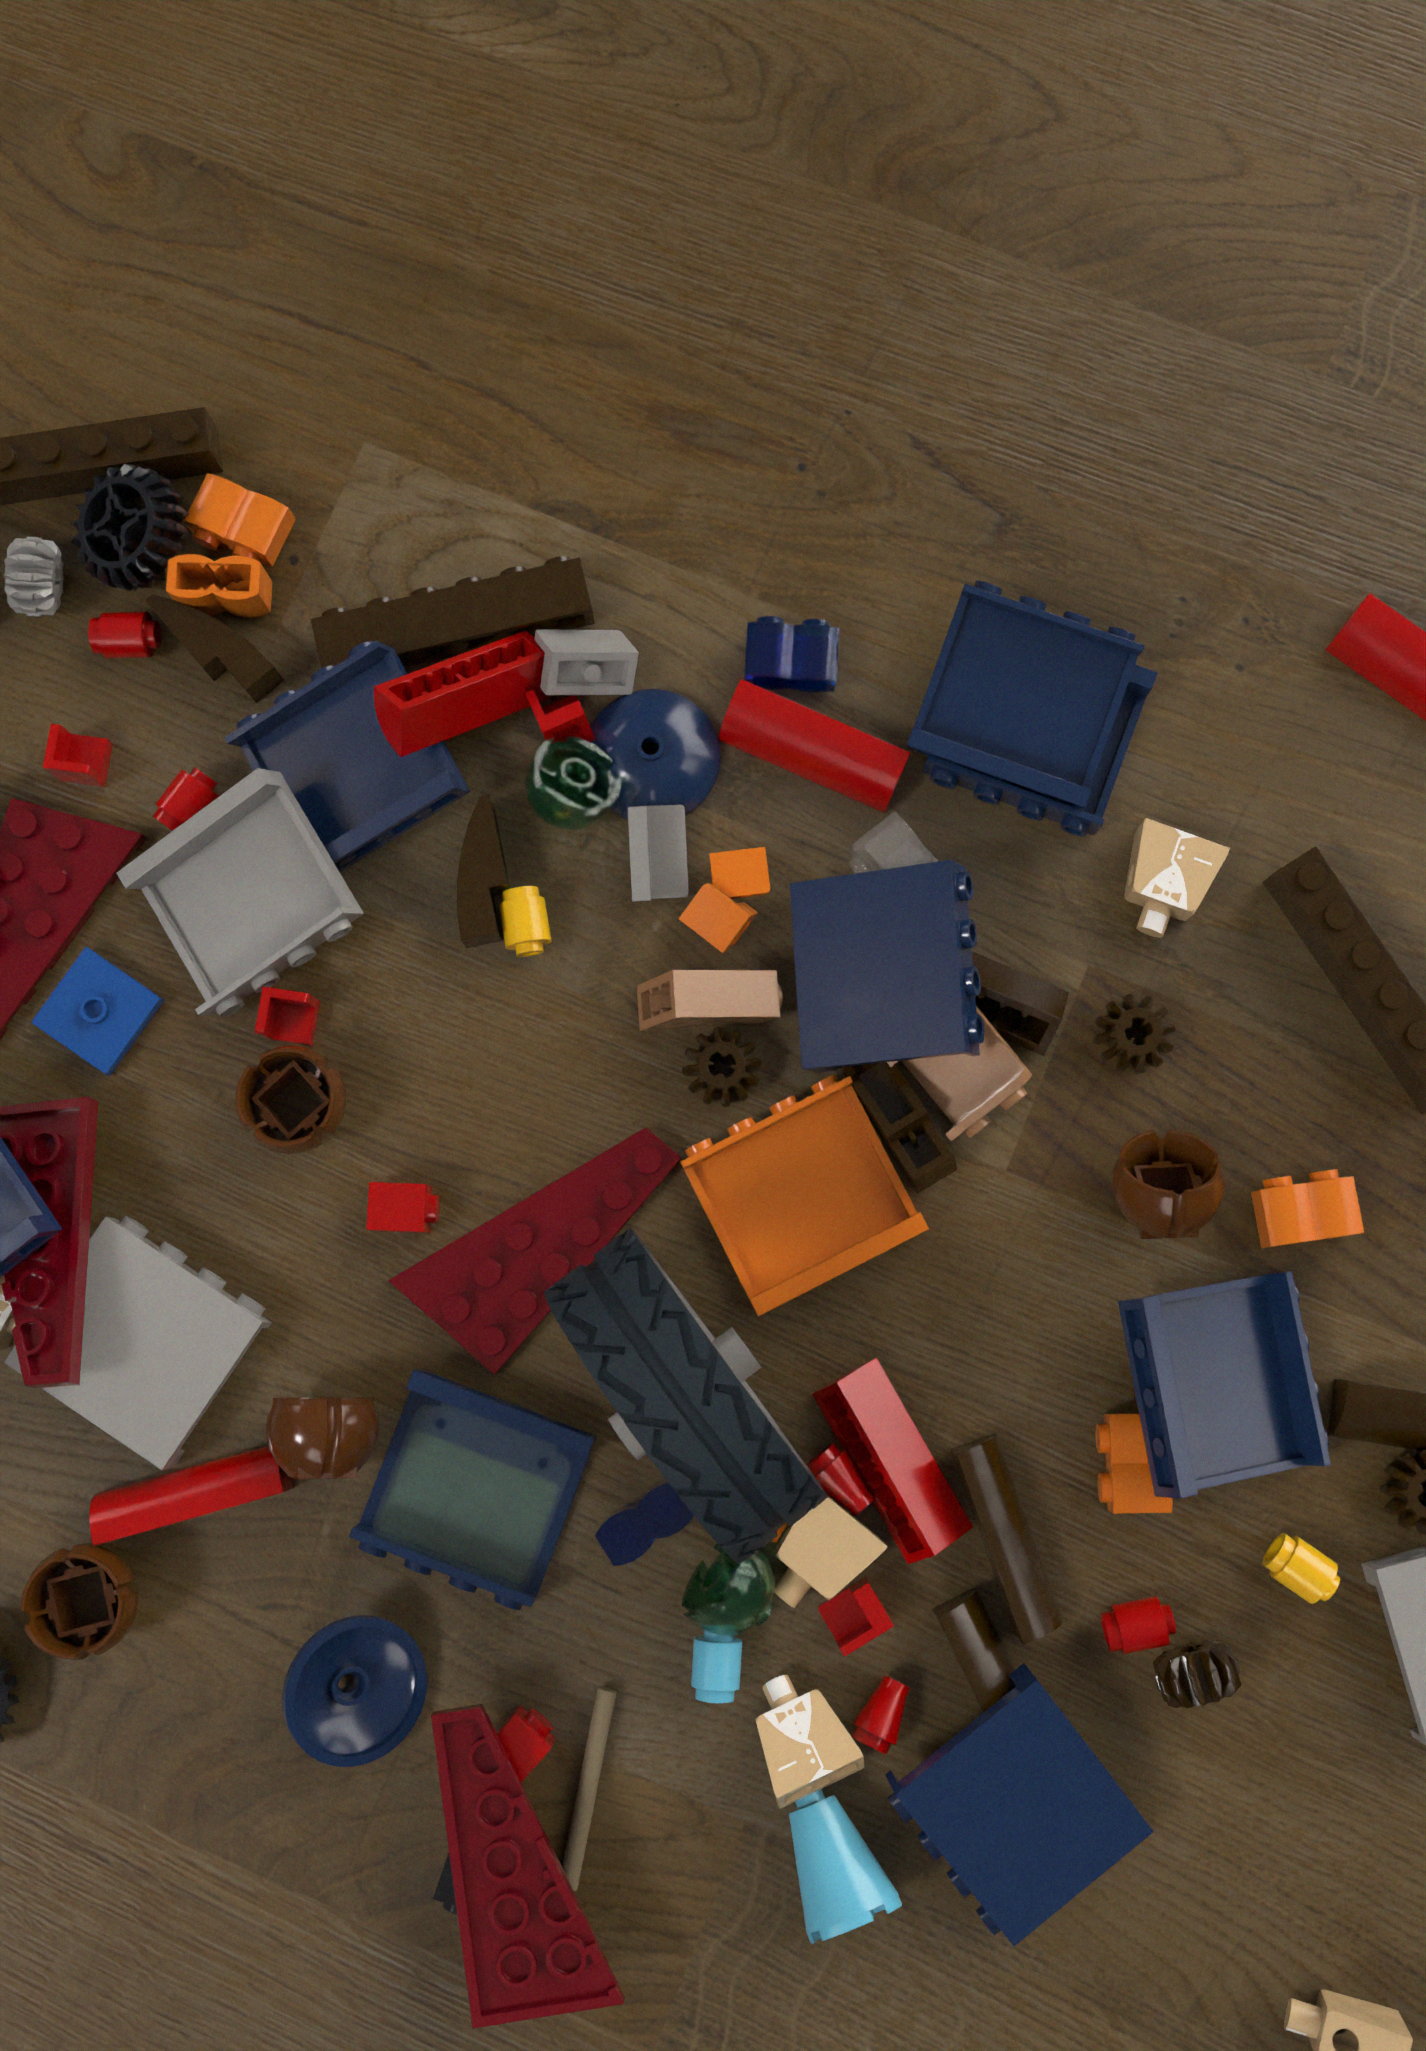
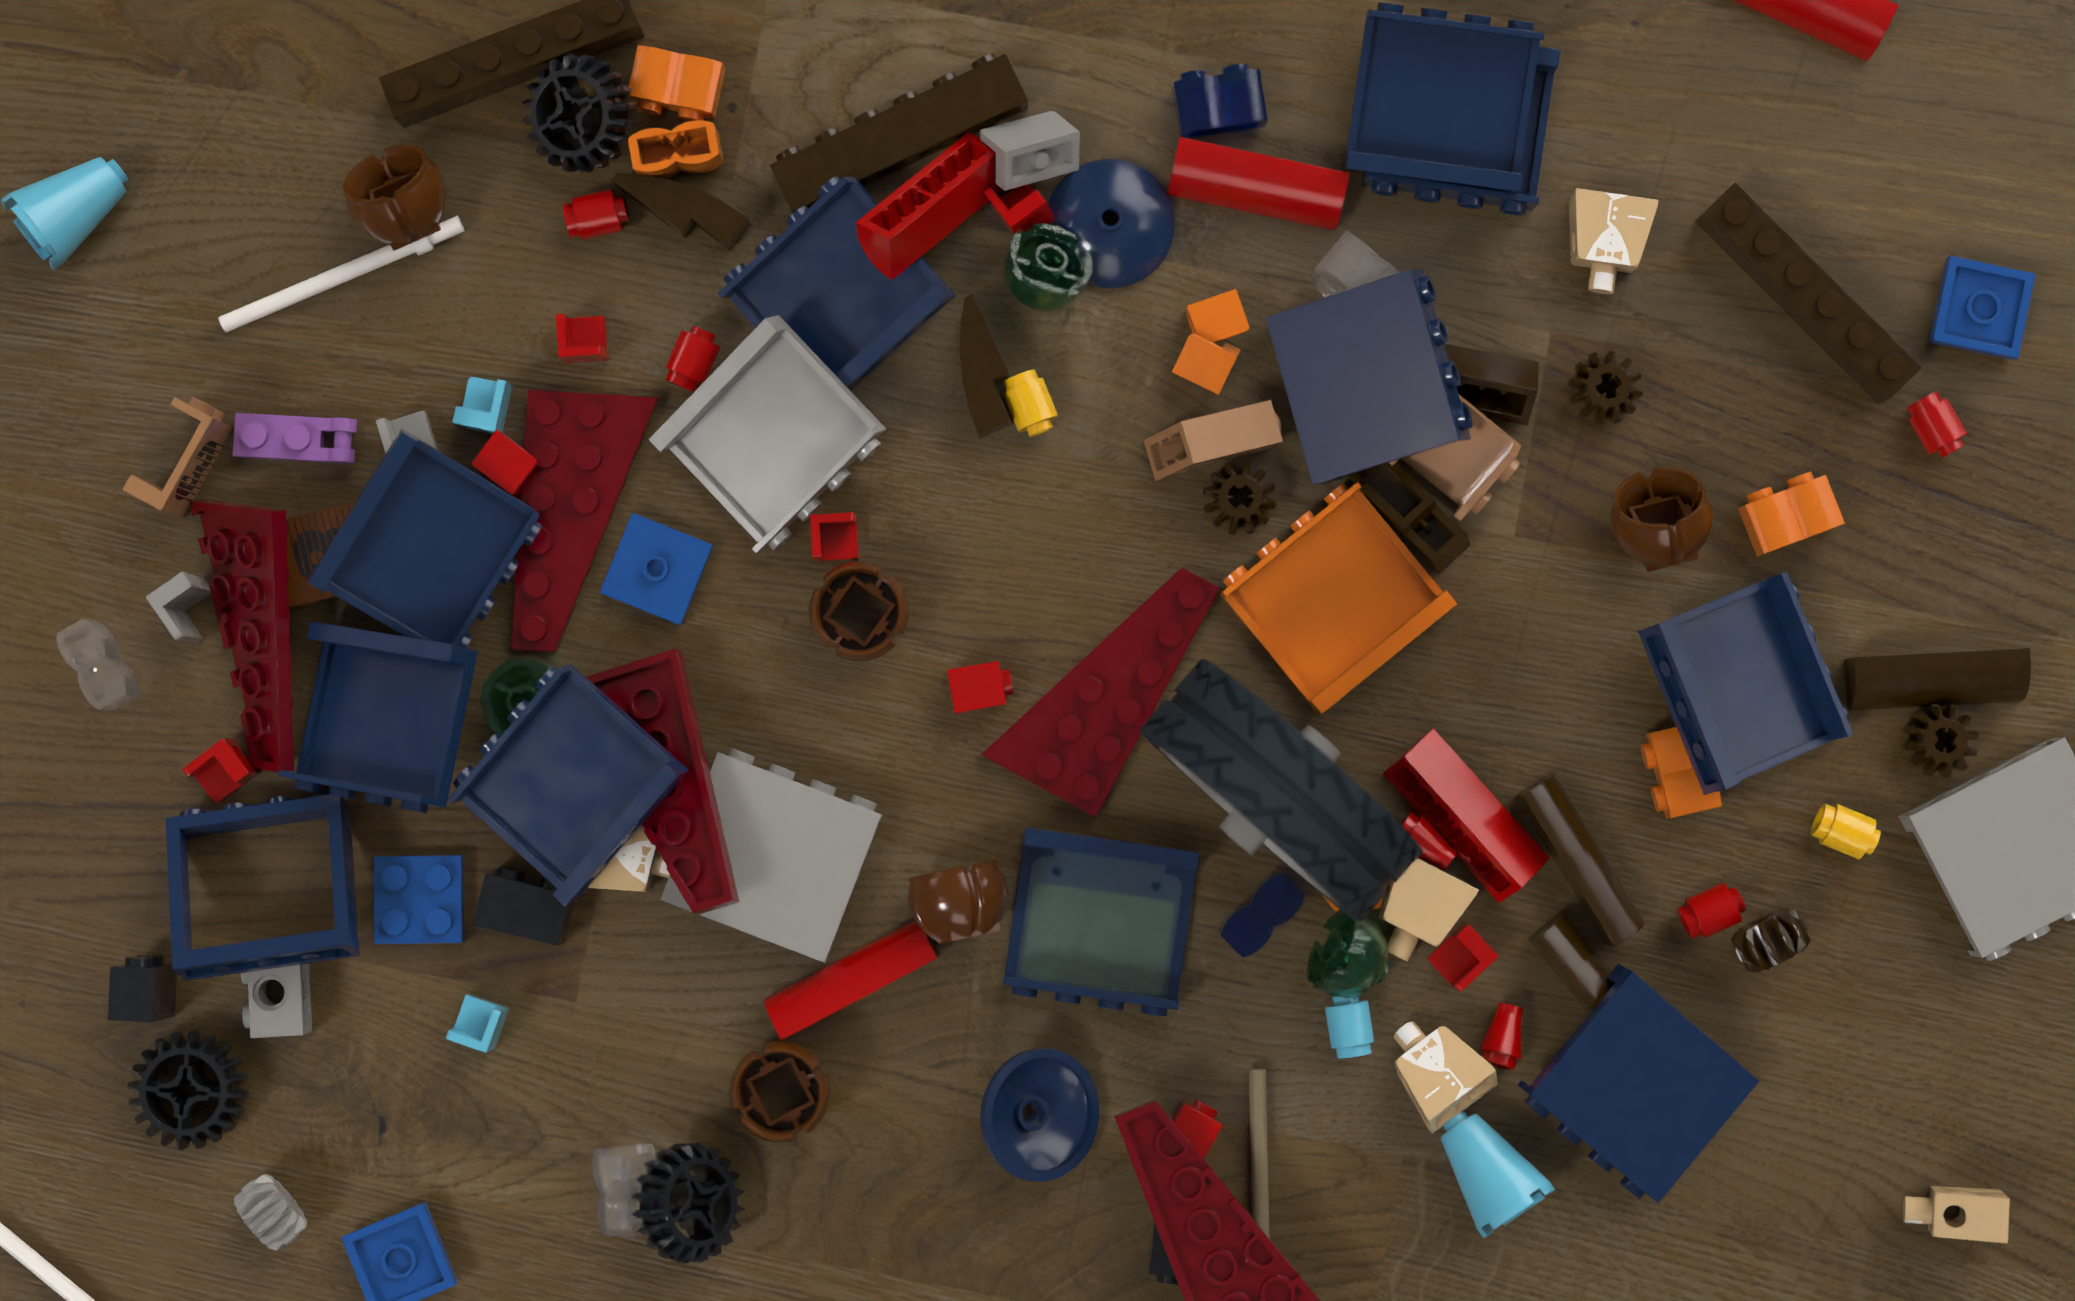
camera: 15 degrees left, 5 degrees up
(33, 576) = (500, 178): light grey gear -> none
(658, 852) = (1137, 313): light grey panel -> none

